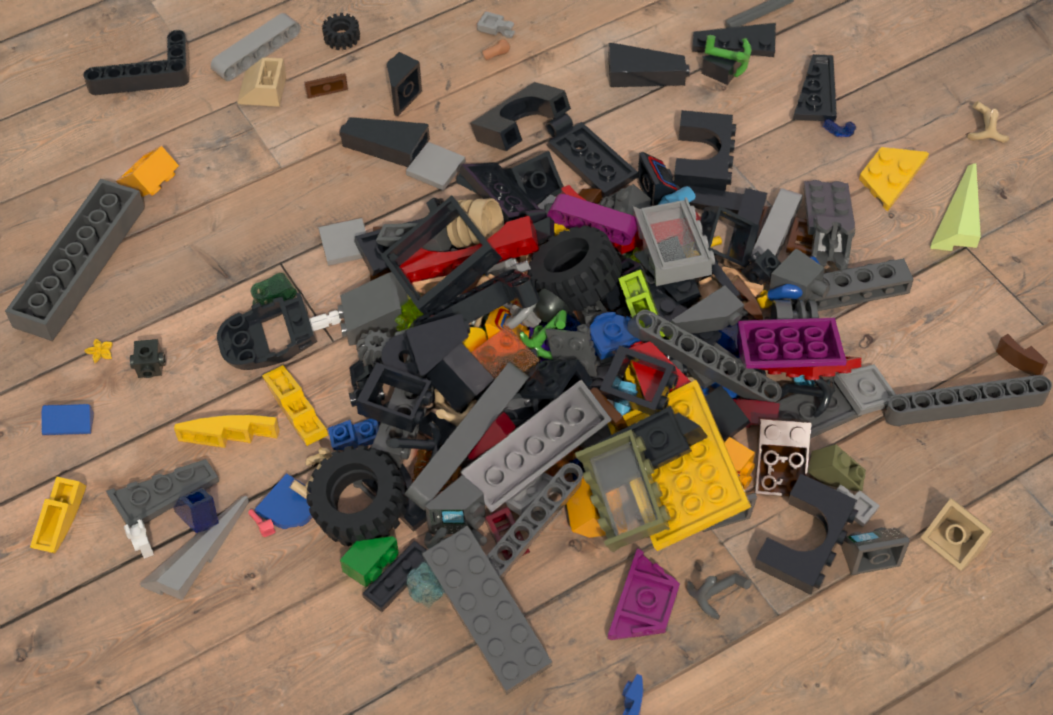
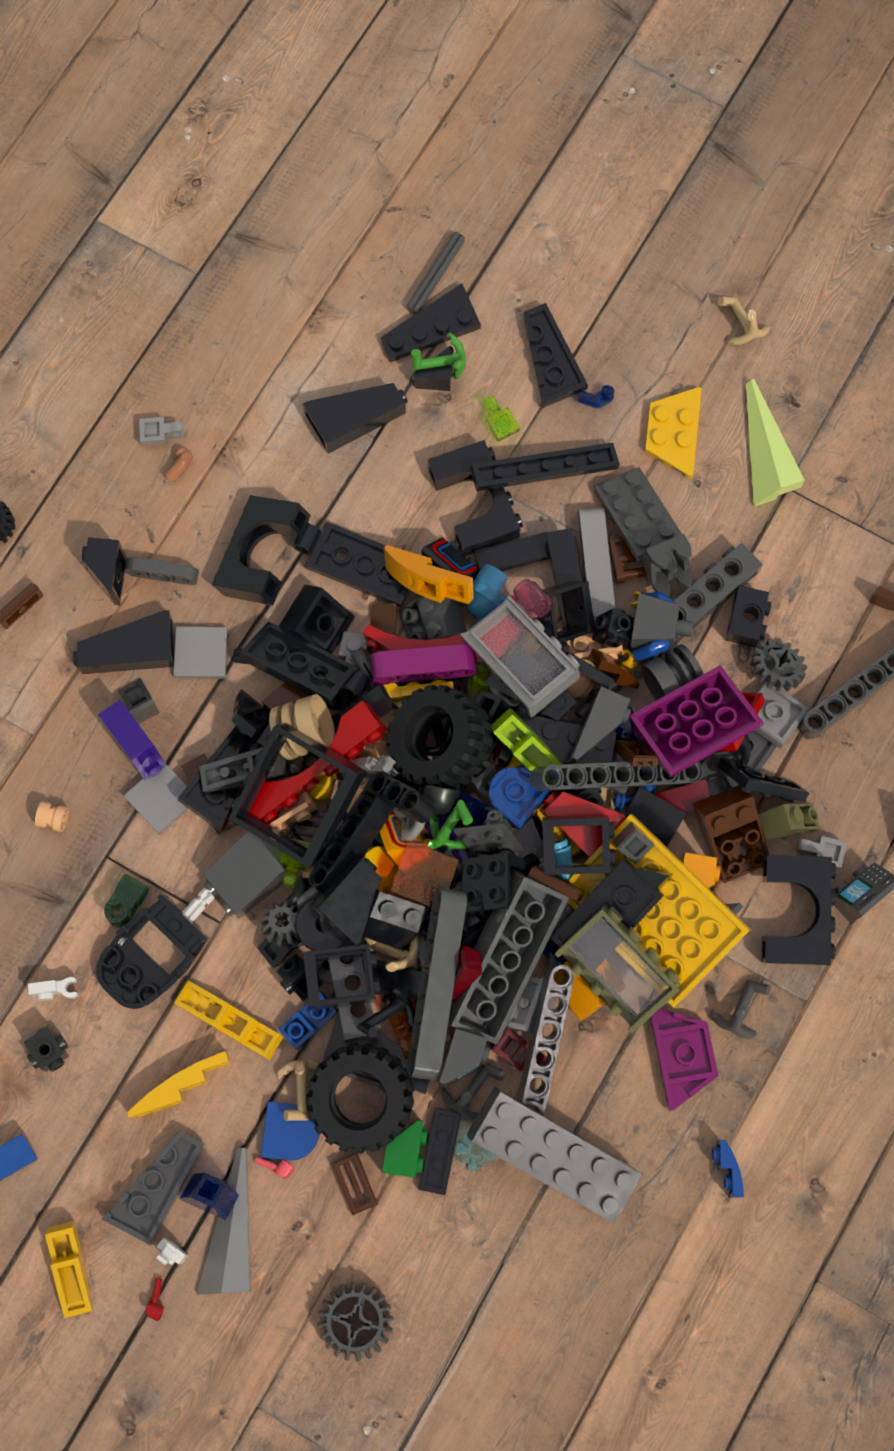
camera: 30 degrees left, 20 degrees up
(100, 575) = (154, 1309): none -> red hand
(178, 323) = (45, 990): none -> white plate
(248, 648) = (335, 1316): none -> dark grey gear
(259, 218) = (53, 816): none -> light nougat wheel
(302, 584) = (364, 1206): none -> reddish brown tile
(347, 189) = (132, 740): none -> dark purple brick
(369, 178) = (138, 701): none -> dark grey slope
(440, 104) = (161, 571): none -> dark grey beam
(633, 174) = (427, 580): none -> light orange slope
(687, 401) = (633, 842): none -> dark grey slope
(703, 203) = (532, 598): none -> clear pink brick
(729, 349) = (637, 755): none -> reddish brown tile
(754, 114) = (500, 421): none -> clear neon green plate
(771, 149) = (544, 466): none -> black plate
(830, 430) = (767, 785): none -> black wing
(882, 313) = (740, 629): none -> black brick
(889, 355) = (778, 665): none -> dark grey gear

